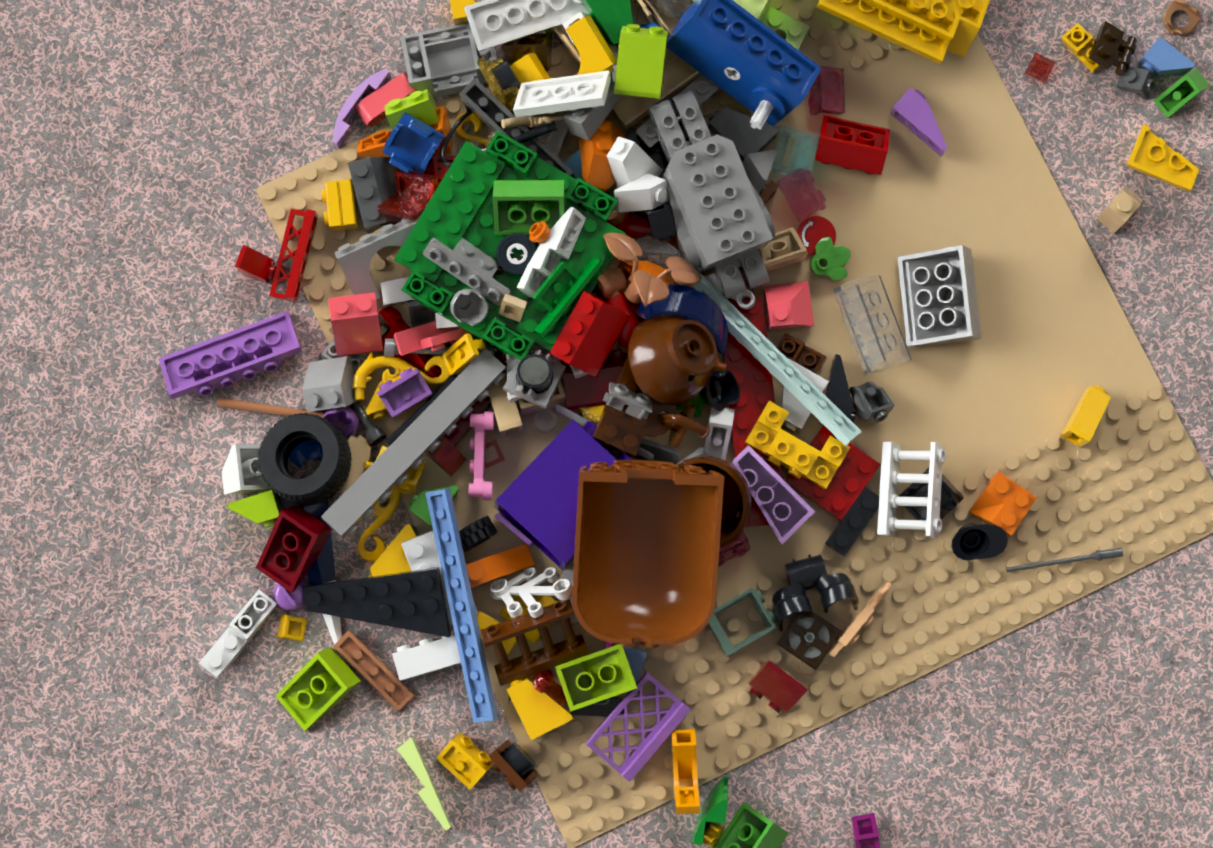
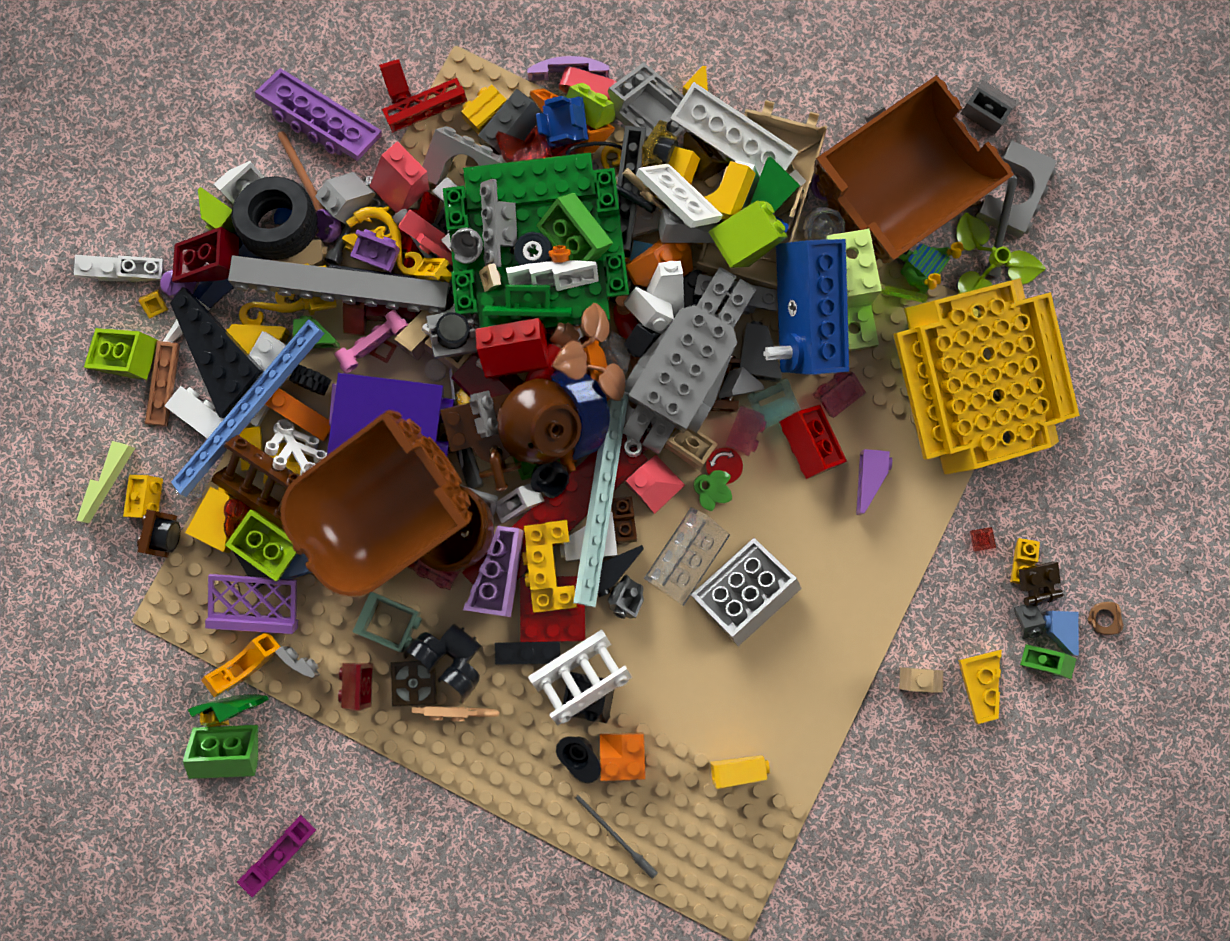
camera: 50 degrees right, 0 degrees up
(725, 721) = (304, 665): none -> light grey slope

